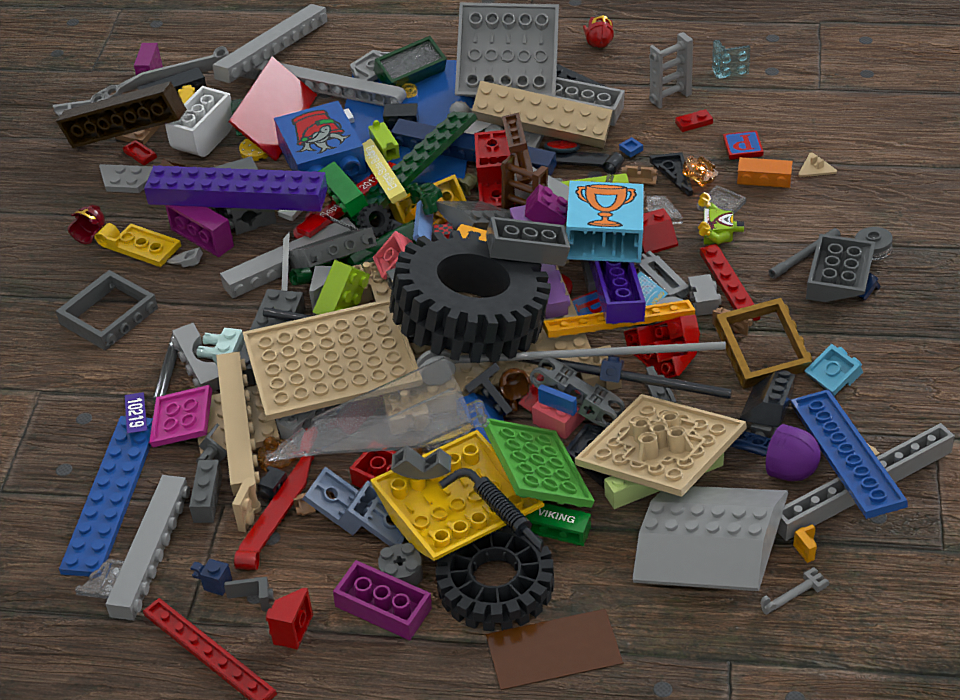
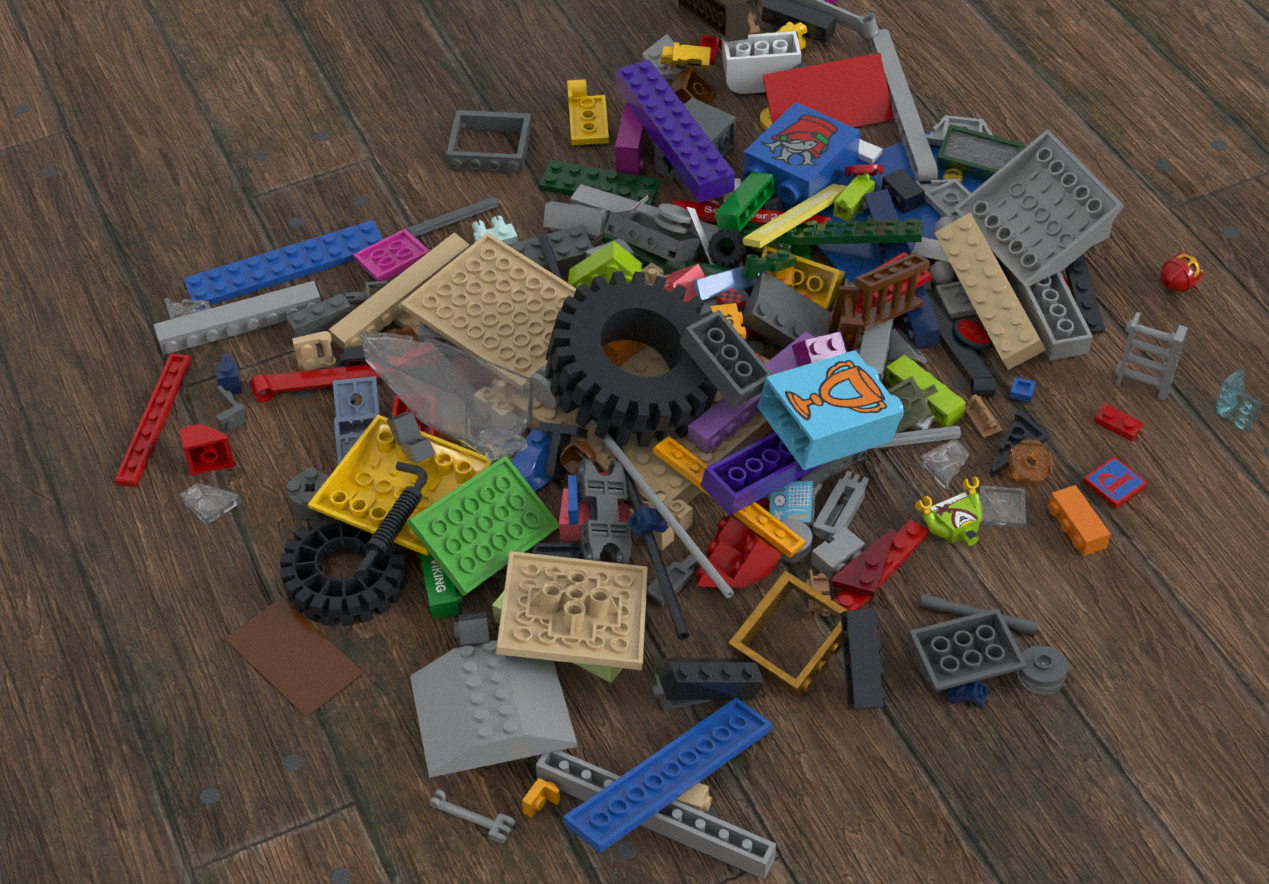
camera: 55 degrees right, 5 degrees up
(86, 224) = (581, 67): dark red helmet -> none
(135, 412) = (380, 226): dark purple sticker -> none
(147, 158) = (684, 56): none -> yellow hips
(187, 258) = (593, 155): light grey plate -> none
(187, 340) = (478, 208): light grey arch -> none
(206, 276) = (566, 178): none -> dark green plate
(250, 293) = (564, 216): none -> light grey brick
(269, 43) = (922, 45): light grey brick -> none
(321, 231) = (673, 218): none -> light grey head
(340, 646) = (209, 502): none -> clear wing
(367, 122) = (861, 169): none -> red tile
(382, 600) = (265, 501): magenta brick -> none
(432, 98) = (945, 195): none -> light grey wing
(627, 513) = (472, 628): none -> dark grey brick
(658, 232) = (901, 469): red slope -> none
(733, 286) = (865, 571): none -> dark red wing
(789, 454) = (638, 720): dark purple piece -> none
(815, 314) = (861, 659): none -> black brick
(816, 166) = (1137, 563): tan piece -> none
(834, 369) = (808, 717): medium azure plate -> none

